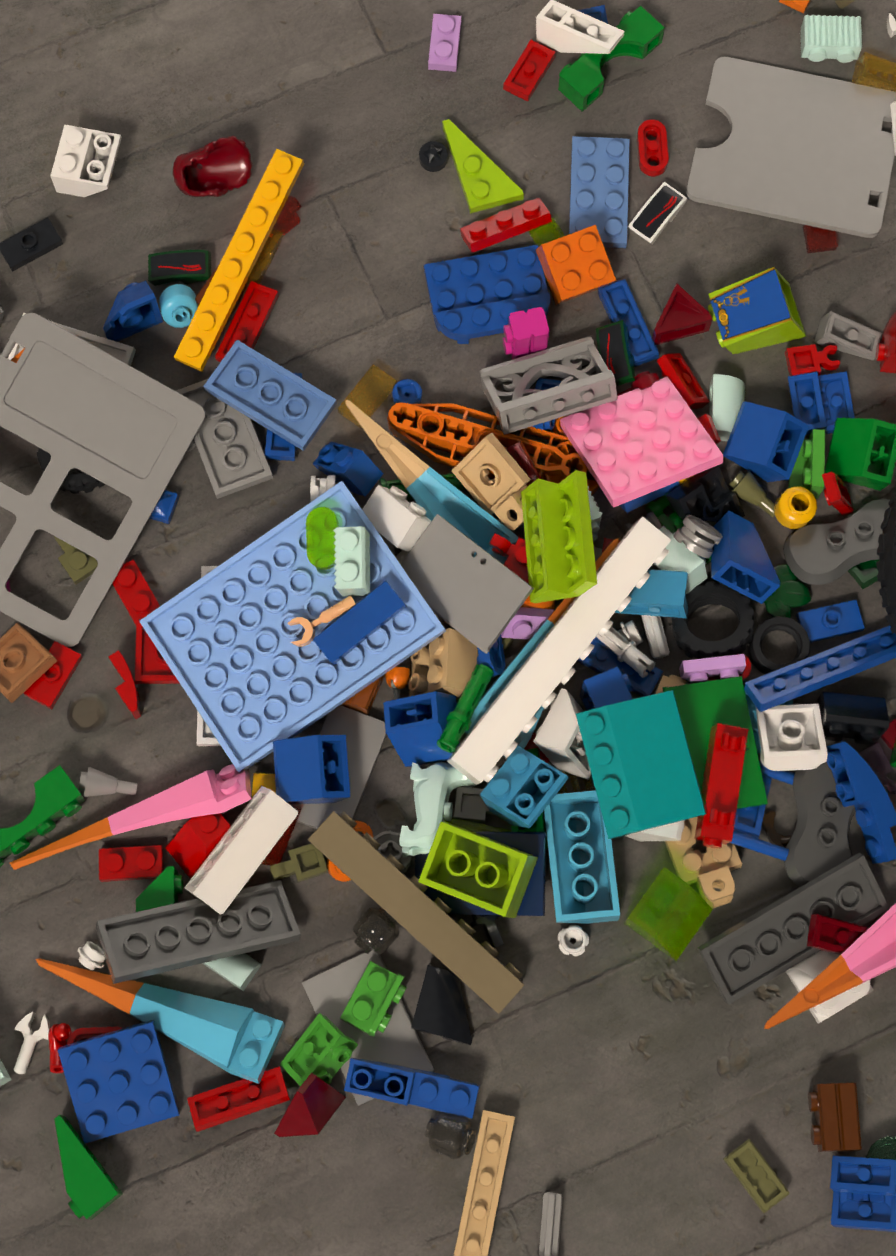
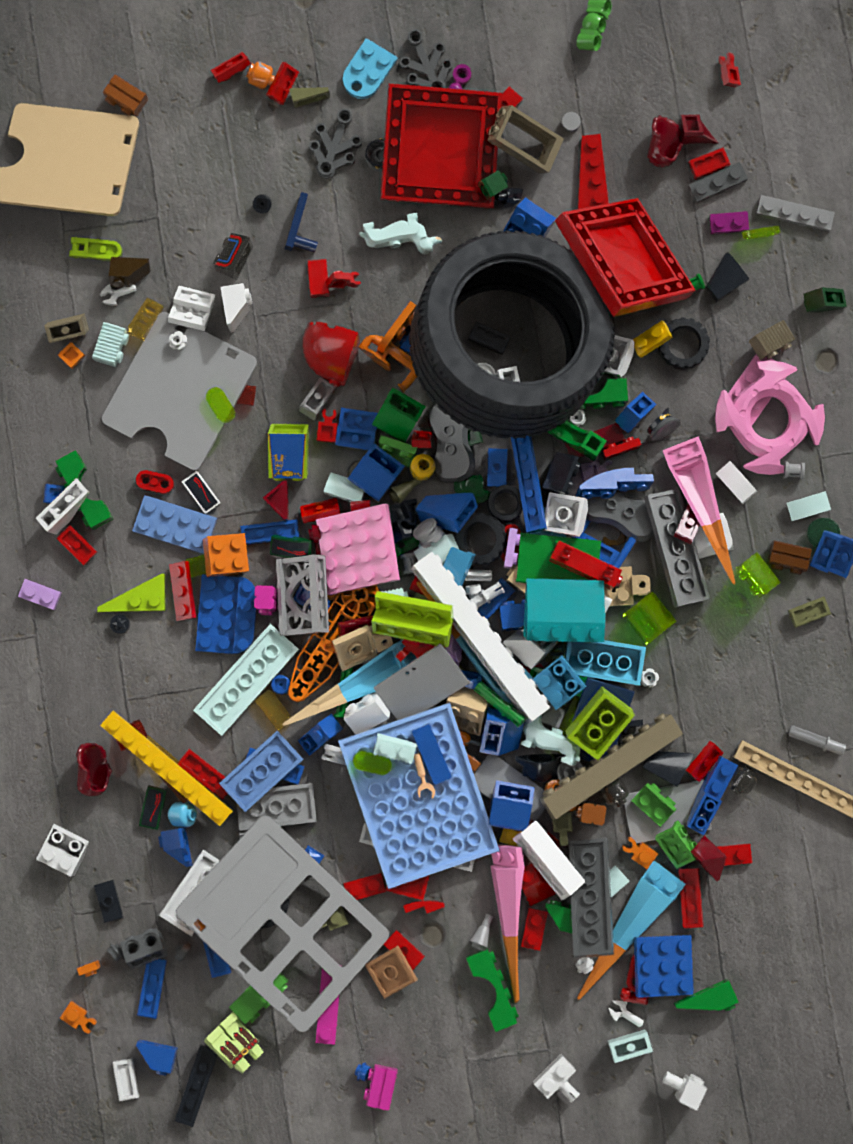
camera: 70 degrees left, 10 degrees up
(289, 1002) = (641, 854): none -> orange plate
(327, 1155) = (737, 854): none -> red plate
(332, 899) = (591, 813): none -> dark orange brick
(385, 801) = (539, 766): none -> black hat
(400, 344) = (246, 680): none -> light aqua plate
(463, 1063) = (704, 761): none -> red plate
(791, 1071) = (757, 575): none -> clear neon green slope
(794, 200) = (220, 405): none -> clear neon green tile
(867, 128) = (182, 340): none -> white plate

